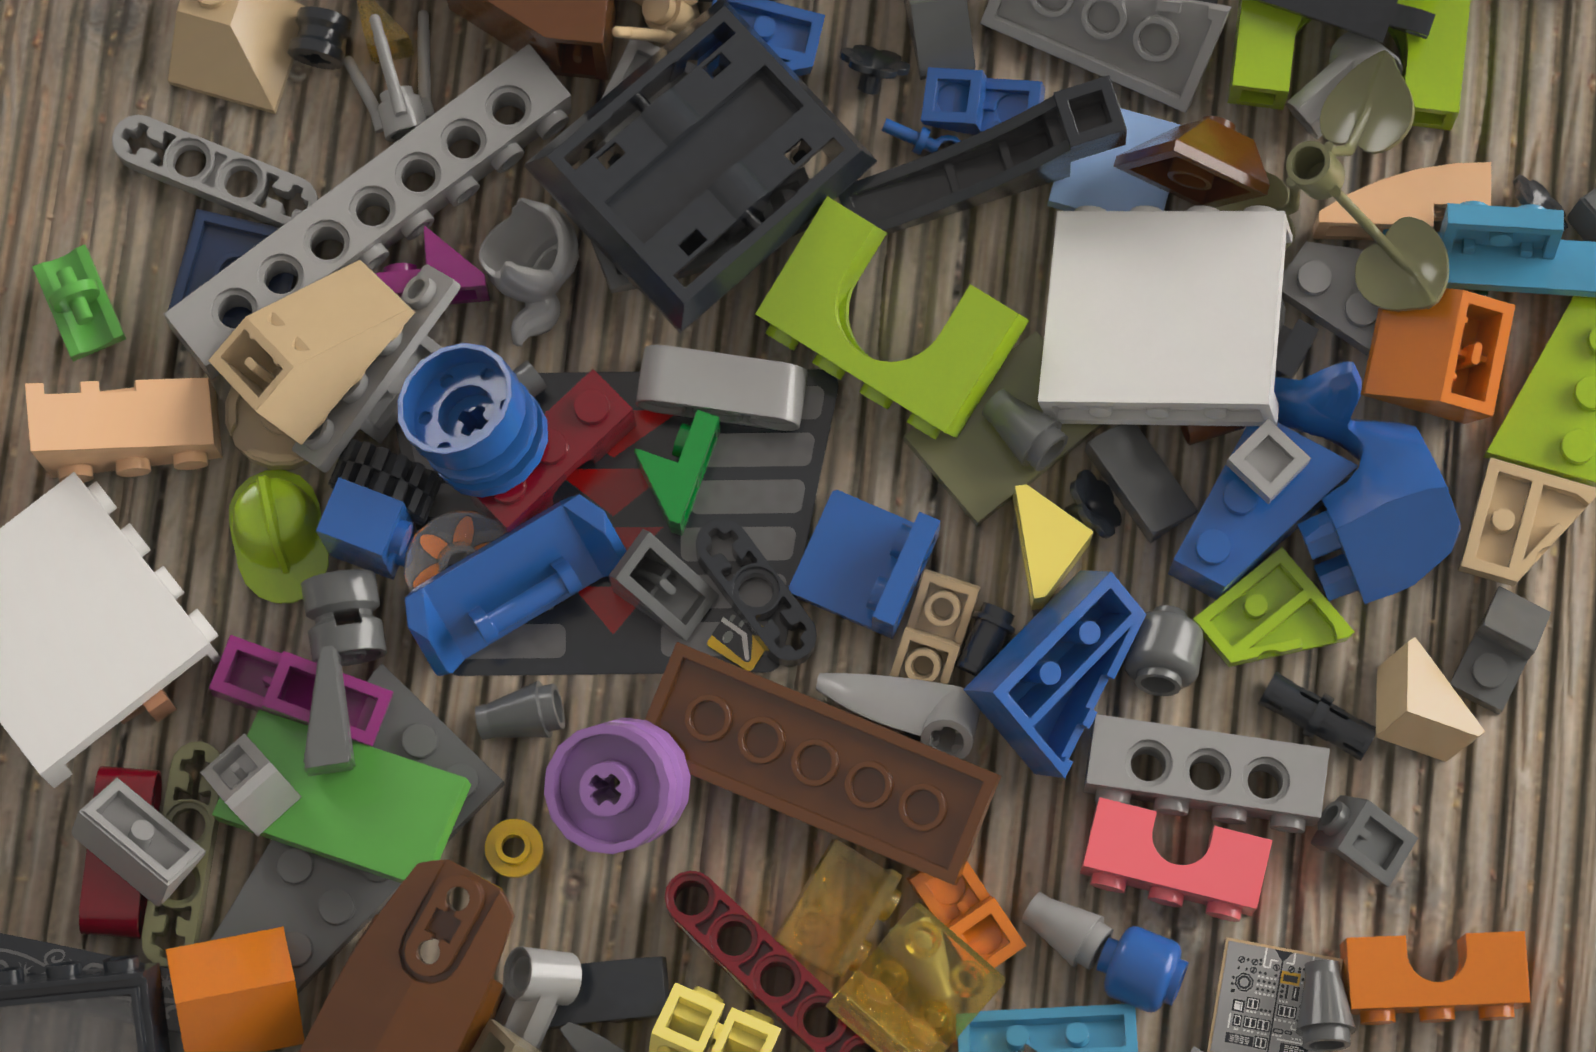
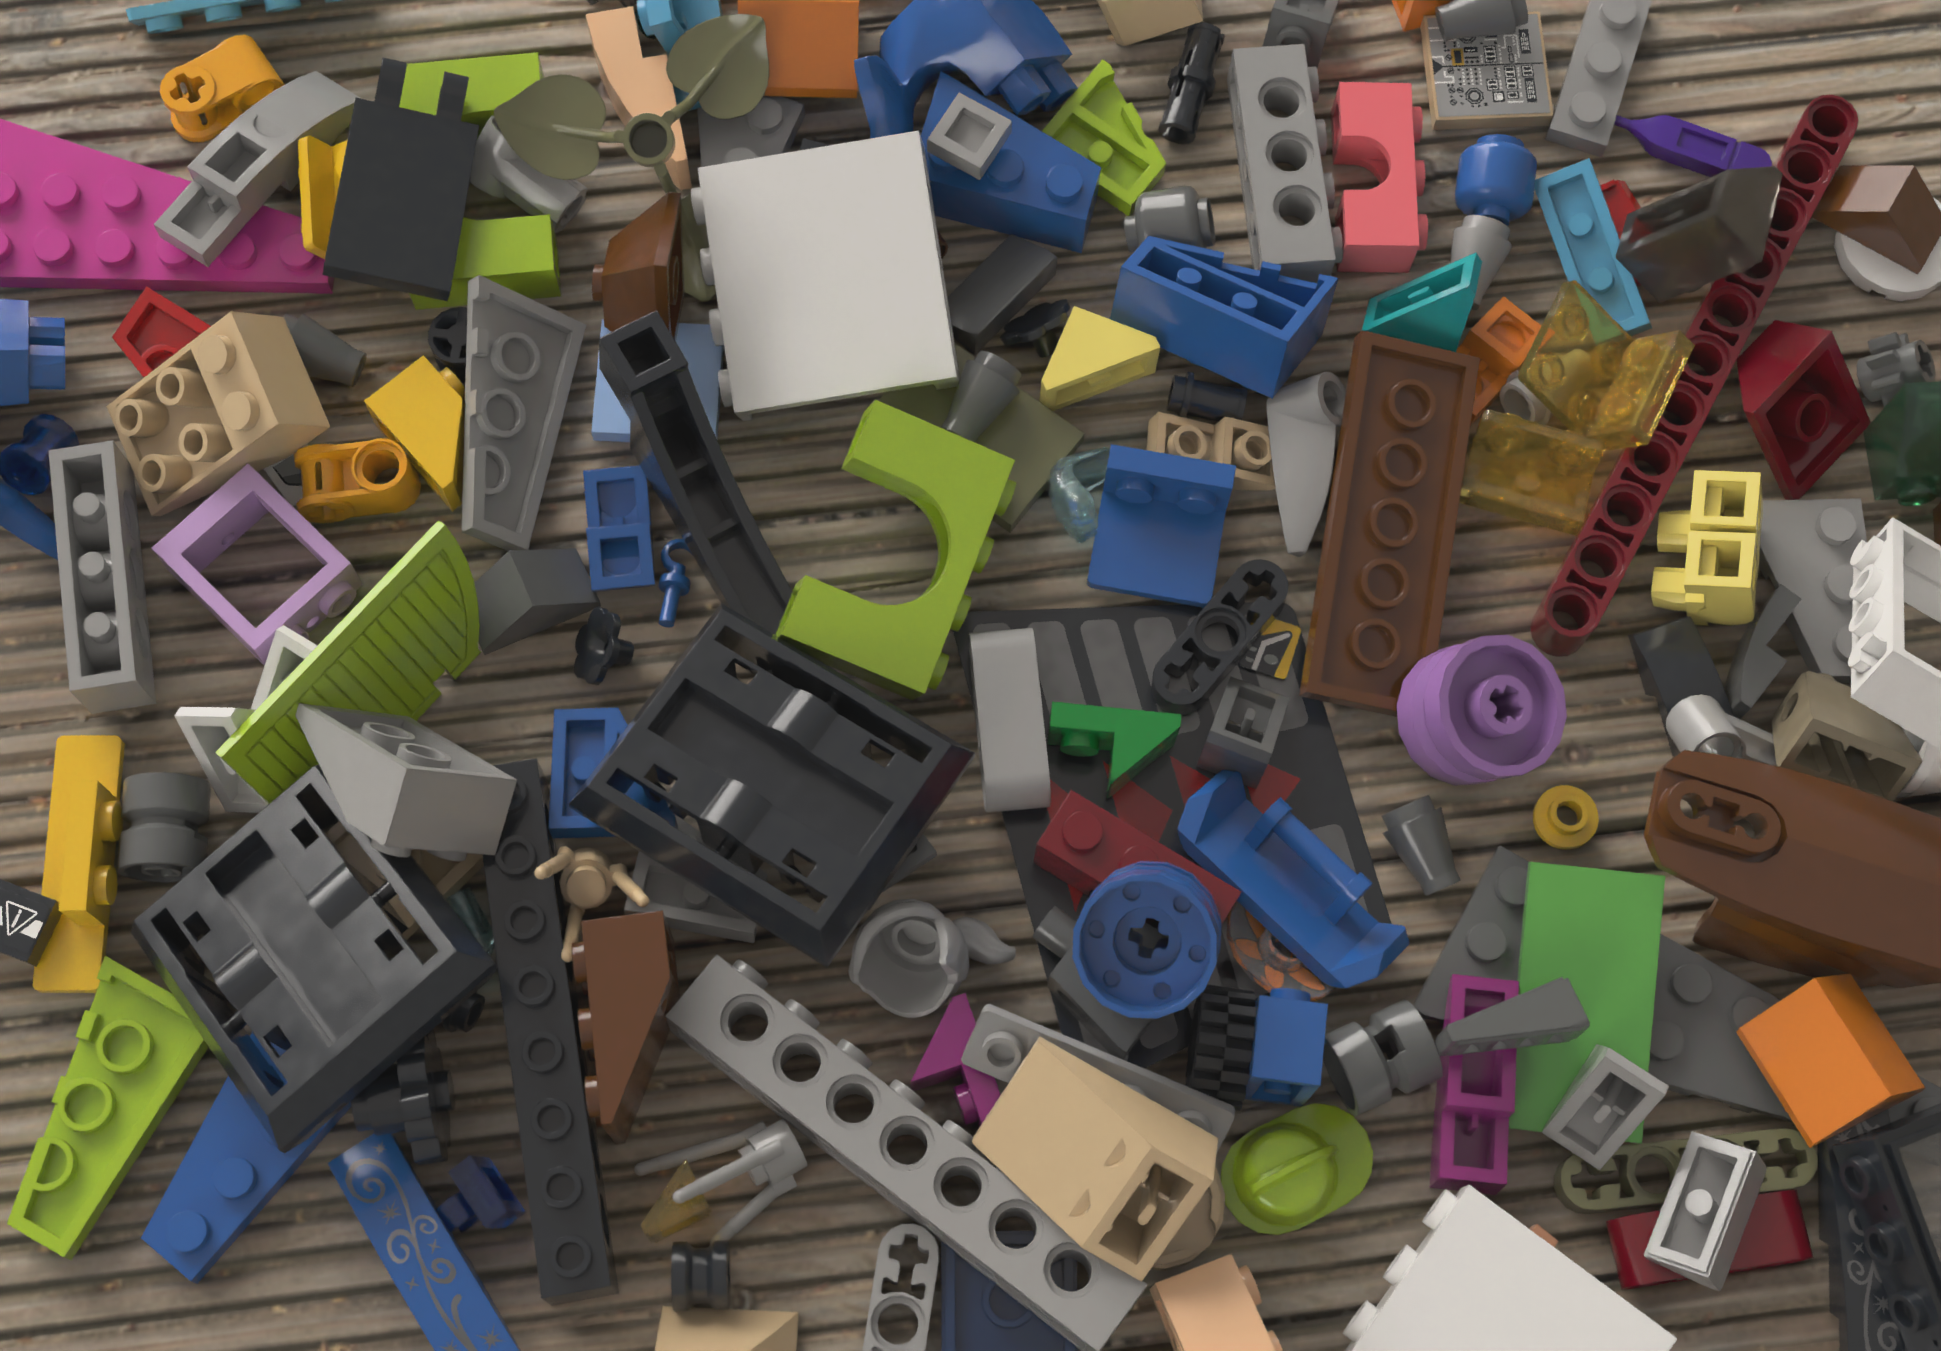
camera: 110 degrees left, 5 degrees down
(928, 492) = (1070, 487): none -> clear light blue hair
(1020, 857) = (1429, 308): none -> teal slope

